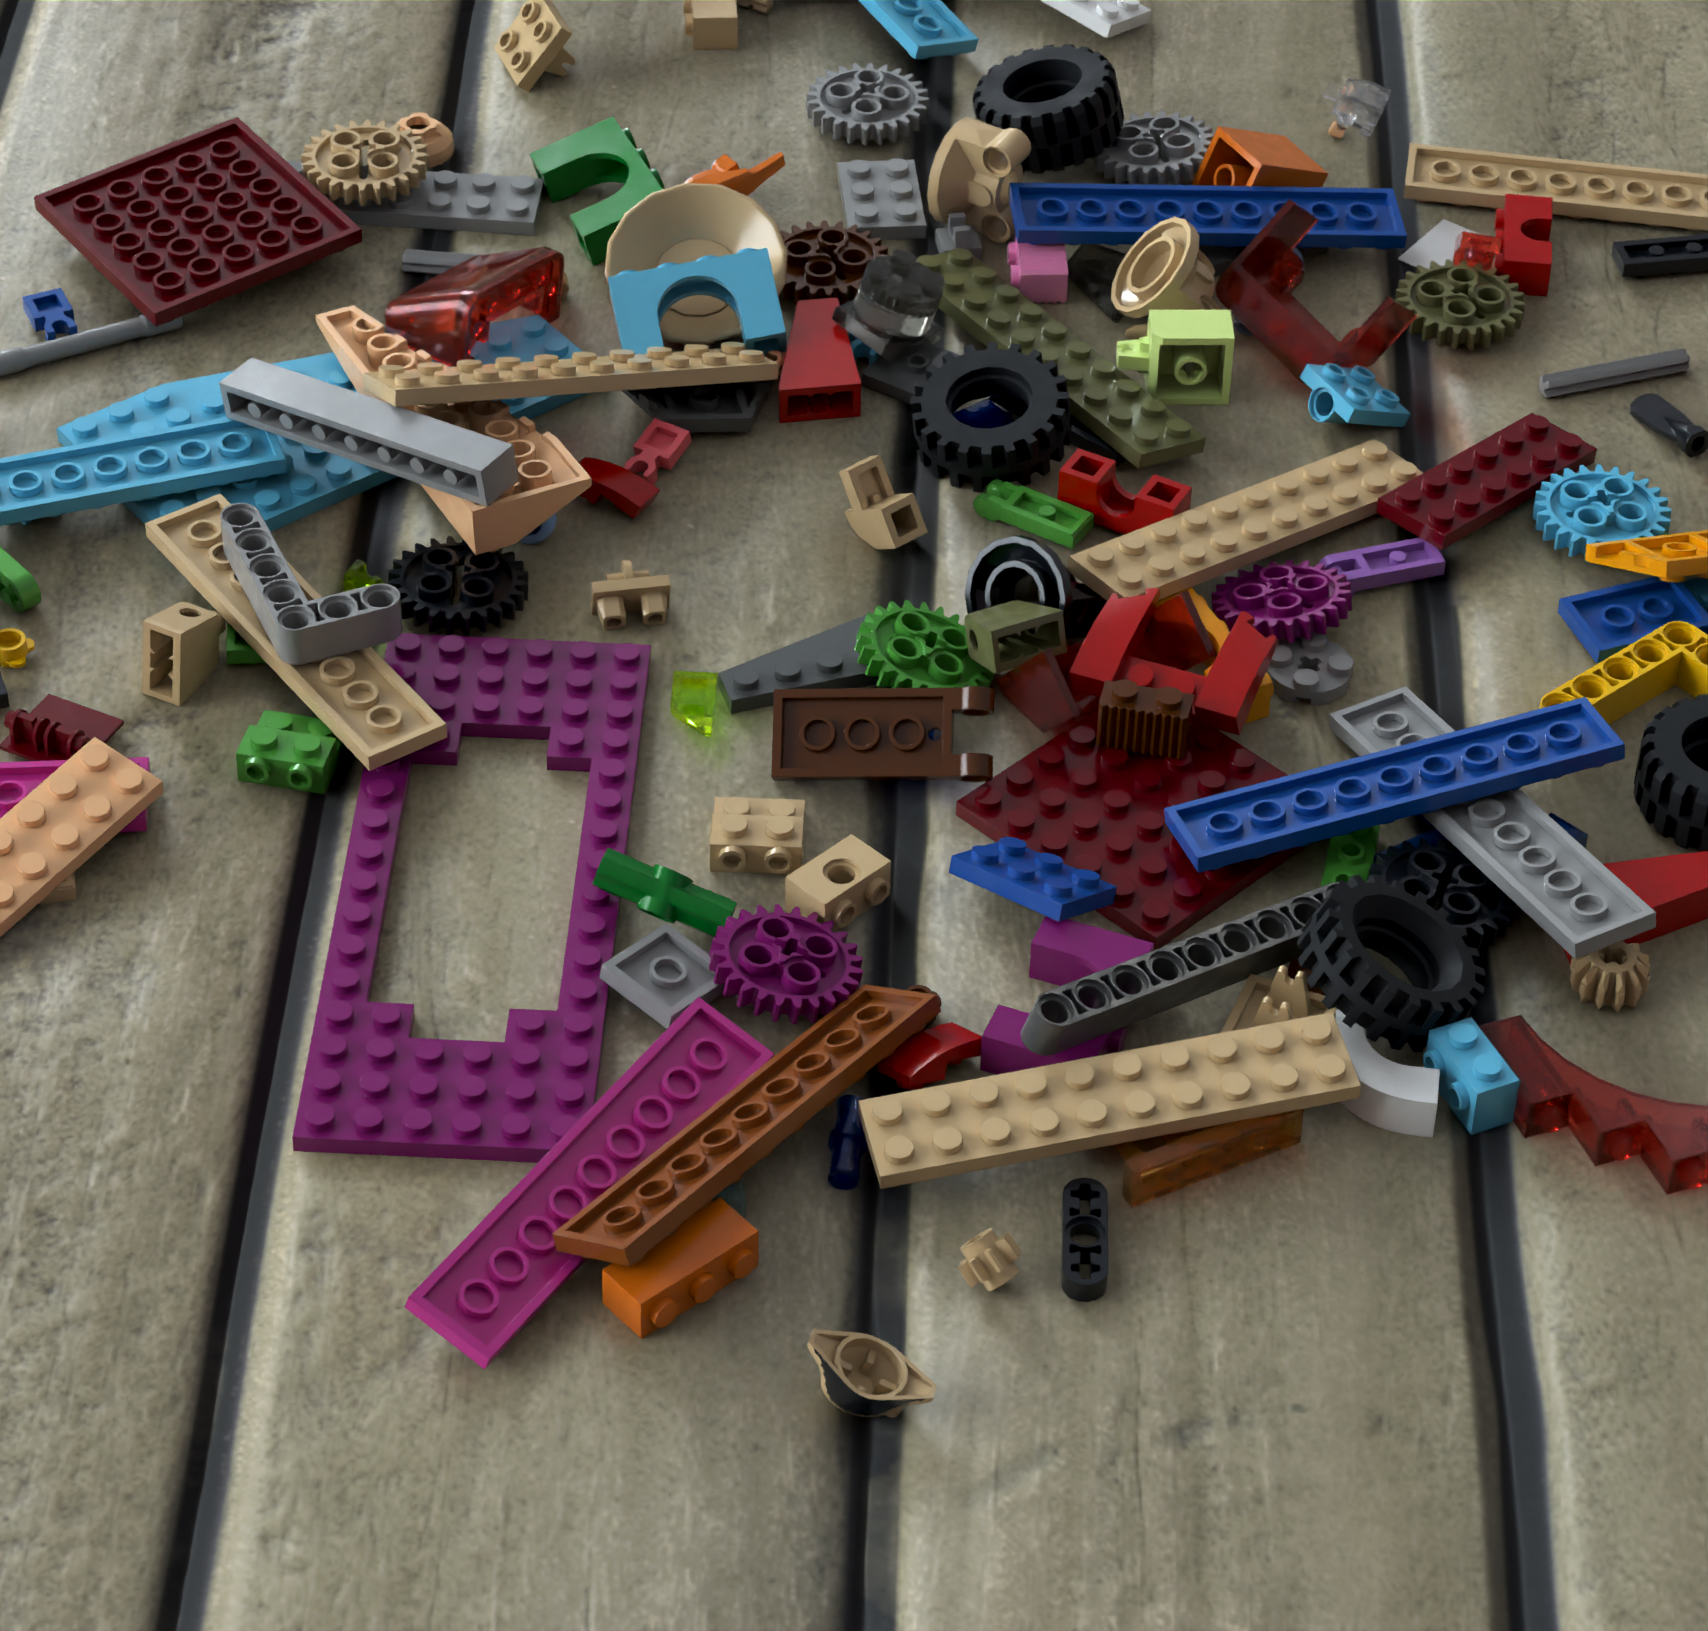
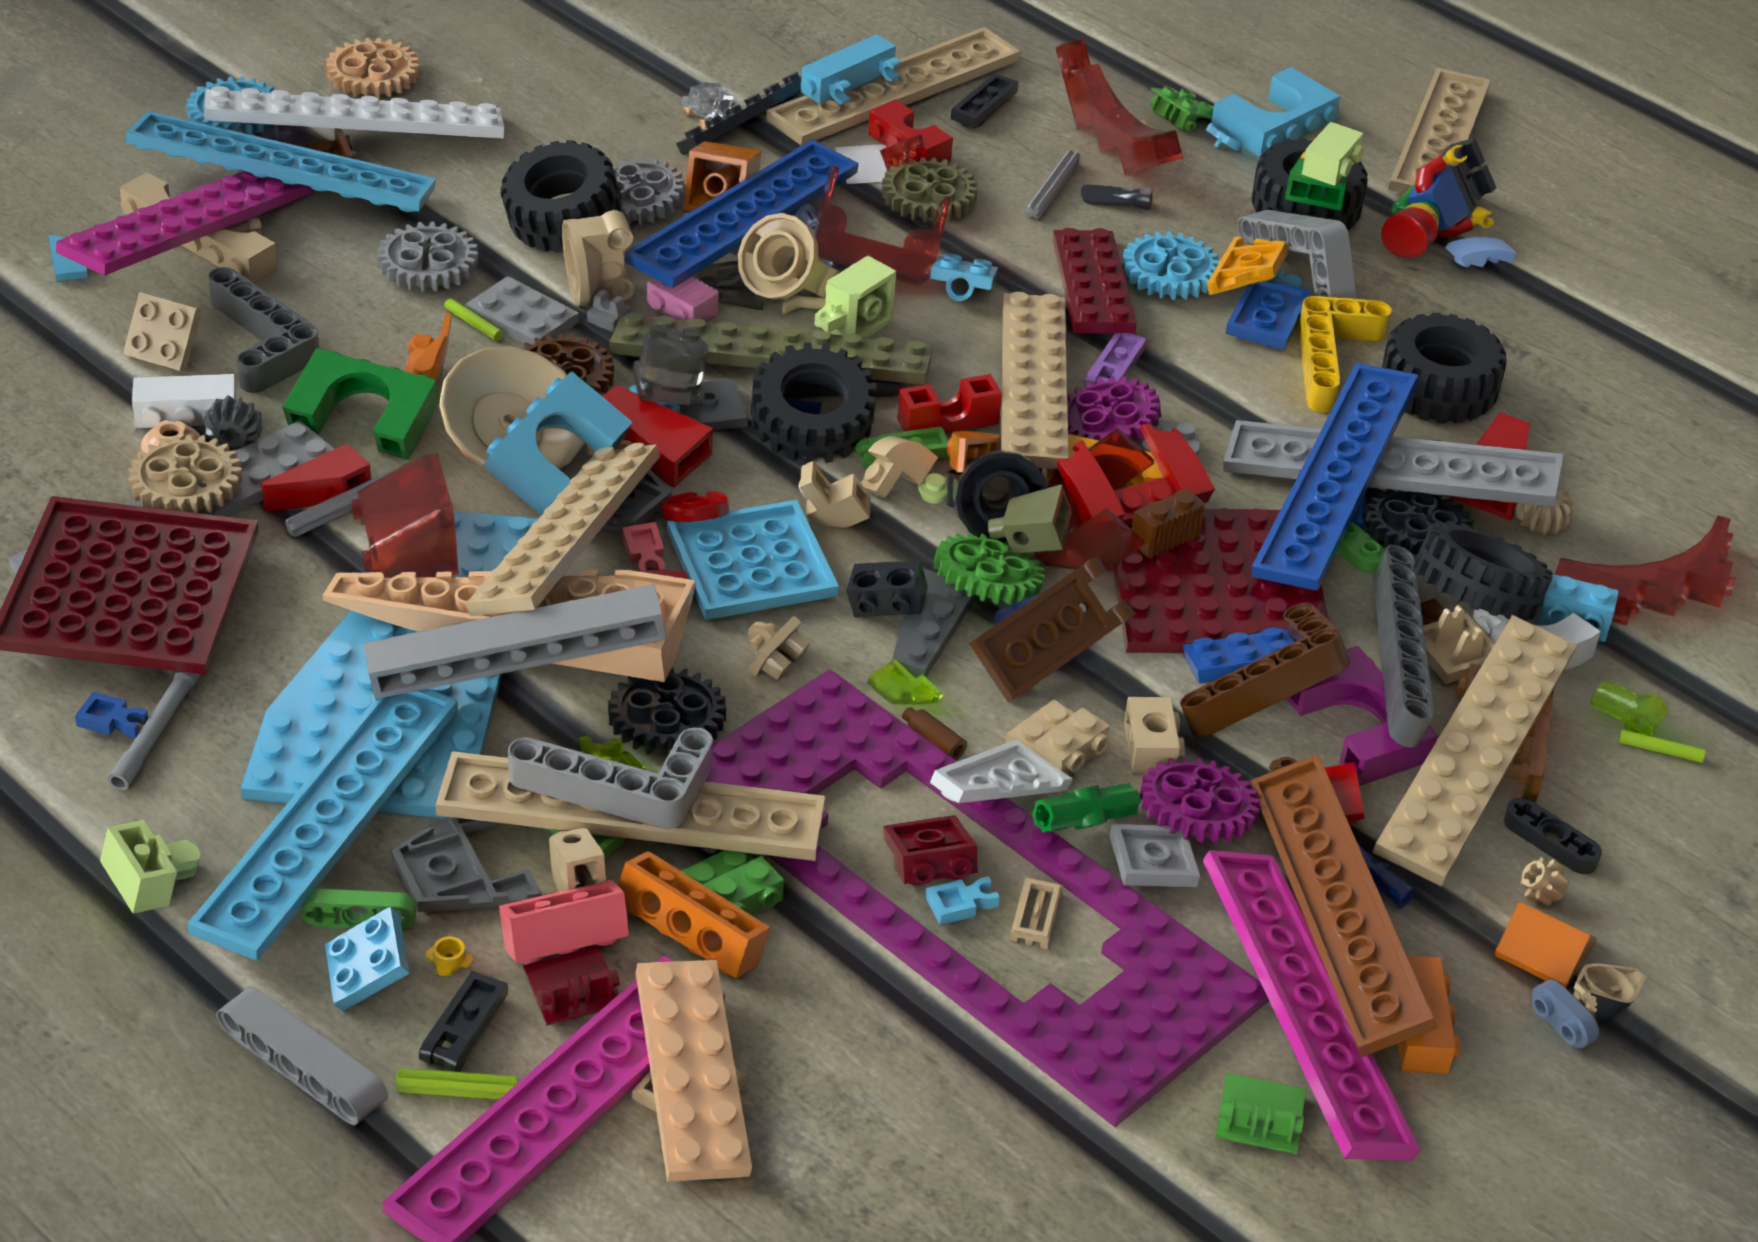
camera: 50 degrees left, 0 degrees up
(102, 586) = (447, 875): none -> dark grey wing
(111, 678) = (564, 921): none -> coral brick
(211, 741) = (693, 914): none -> orange brick
(413, 1229) = (1261, 1113): none -> bright green hinge
(448, 888) = (958, 902): none -> medium azure plate
(473, 229) = (316, 480): none -> red slope
(475, 144) = (233, 422): none -> dark grey gear
(476, 109) = (178, 398): none -> white brick
(485, 835) = (931, 850): none -> dark red plate
(506, 953) = (1031, 934): none -> tan tile
(637, 816) = (998, 774): none -> white wing
(639, 107) = (285, 335): none -> dark grey beam
(653, 756) = (935, 732): none -> reddish brown cylinder
(734, 517) = (753, 560): none -> medium azure plate
(750, 442) = (694, 508): none -> red tile
(798, 610) = (887, 588): none -> black brick
(803, 1387) = (1565, 1014): none -> sand blue plate
(829, 181) = (473, 319): none -> lime piece
(914, 1306) = (1544, 945): none -> orange slope
(991, 506) = (896, 459): none -> tan brick
(1018, 905) = (1311, 658): none -> reddish brown beam
(1057, 530) = (968, 446): none -> orange slope
(1349, 1255) = (1662, 746): none -> lime piece
(1366, 1202) = (1637, 712): none -> clear neon green piece
(1407, 131) = (737, 115): none -> black plate
(1545, 144) = (849, 69): none -> medium azure brick

